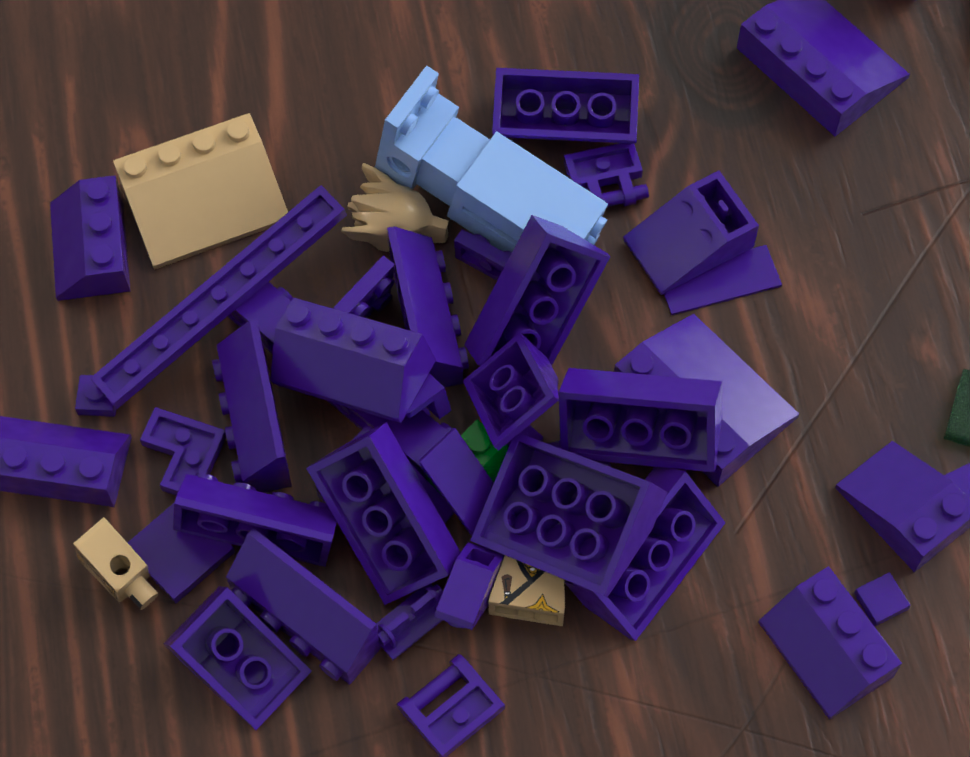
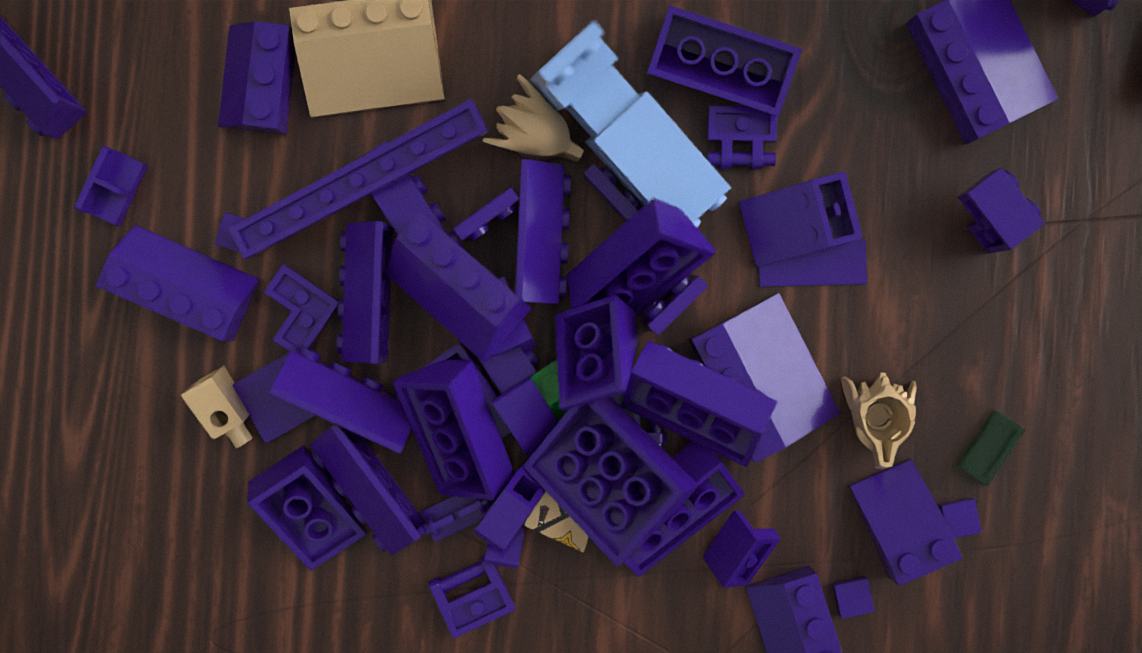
camera: 15 degrees right, 25 degrees up
(475, 642) = (510, 555): none -> dark purple slope
(579, 343) = (663, 312): none -> dark purple plate
(738, 571) = (739, 551): none -> dark purple panel
(840, 397) = (881, 416): none -> tan piece
(889, 171) = (1000, 211): none -> dark purple brick

